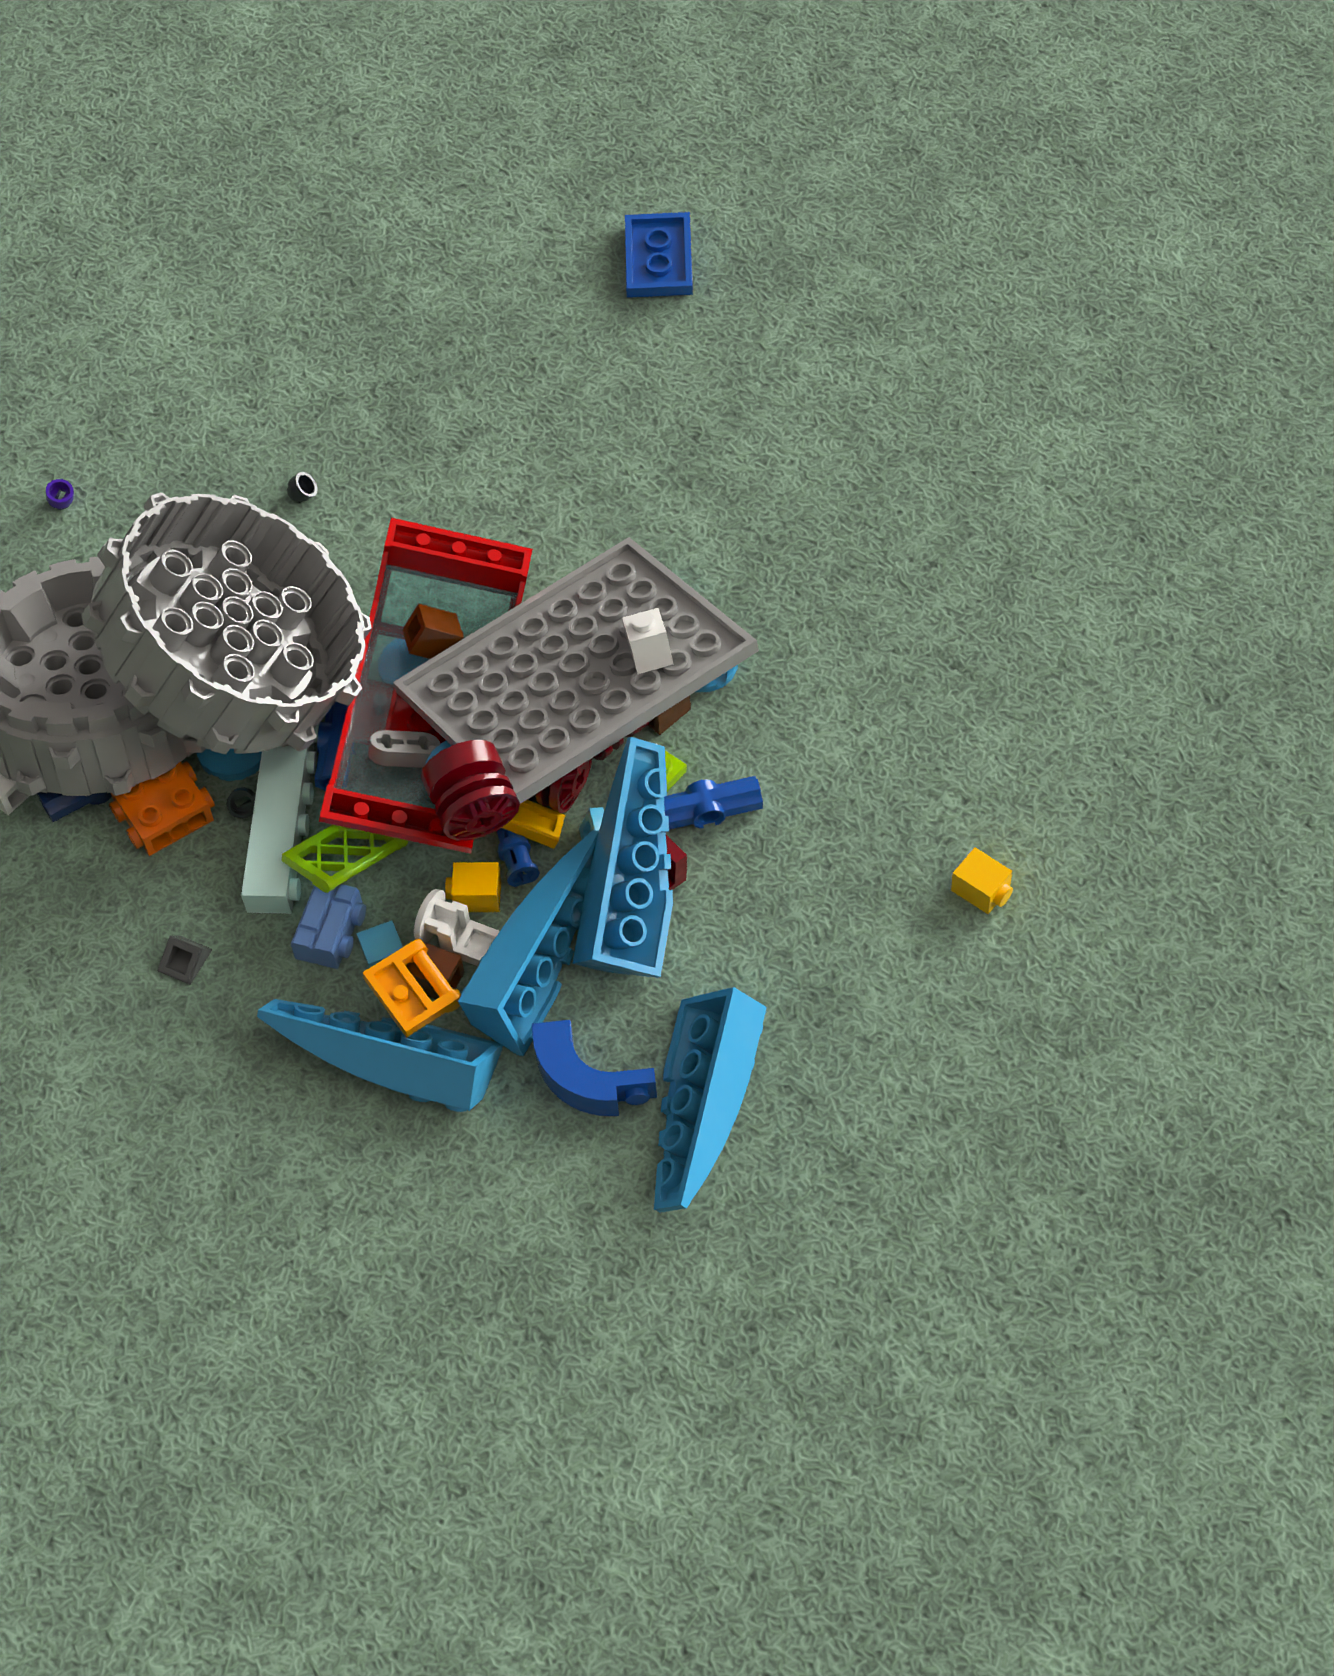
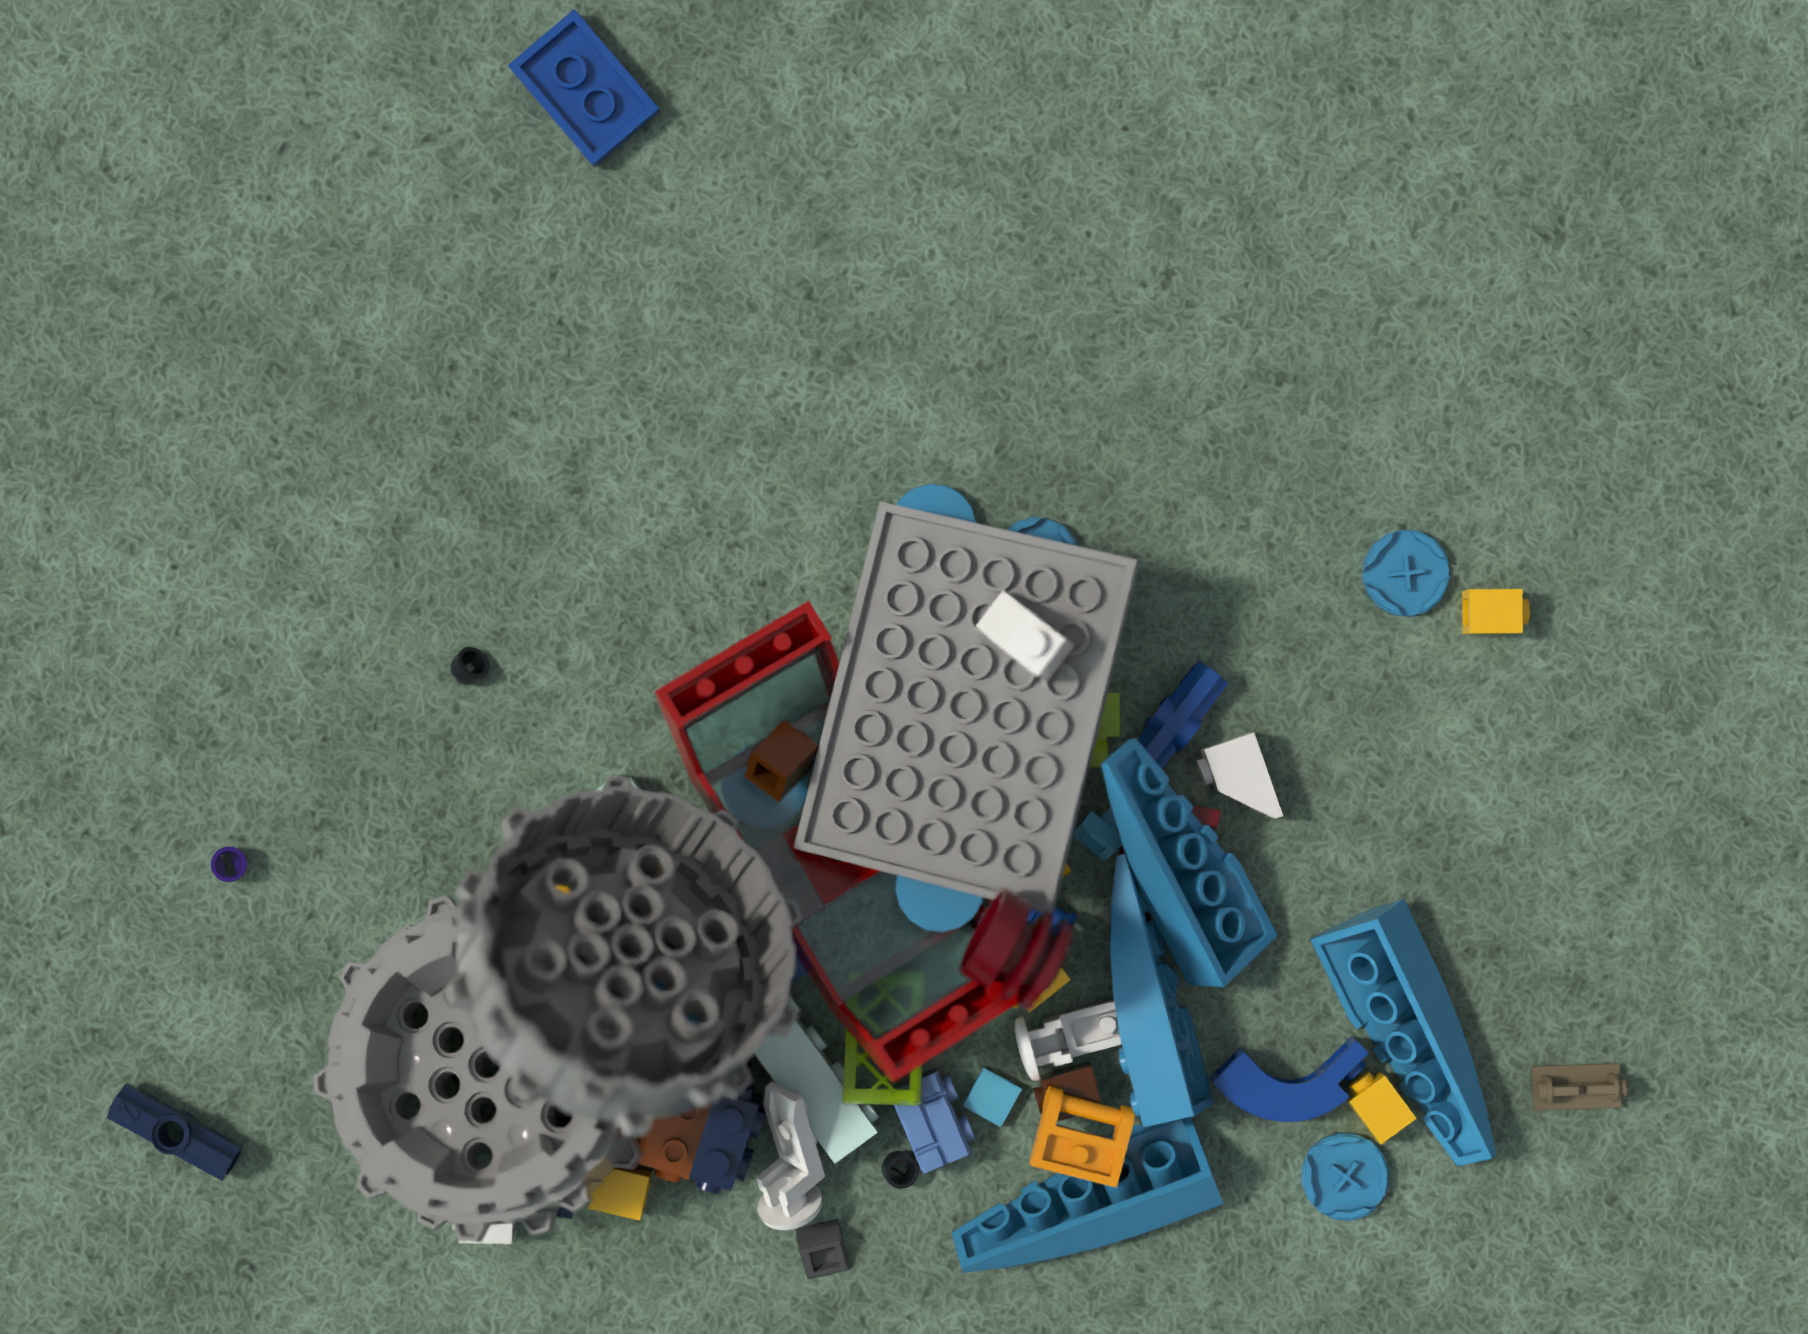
camera: 40 degrees left, 30 degrees up
(96, 824) = (623, 1193): none -> yellow brick
(191, 829) = (722, 1147): none -> dark blue brick
(230, 866) = (790, 1182): none -> white piece
(271, 943) = (895, 1177): none -> black hinge
(401, 748) = (853, 898): light grey beam -> none
(570, 1168) = (1345, 1176): none -> dark azure tile
(633, 1132) = (1379, 1105): none -> yellow brick
(723, 860) = (1240, 773): none -> white slope
(786, 1228) = (1577, 1086): none -> dark tan hinge
(942, 826) = (1406, 573): none -> dark azure tile

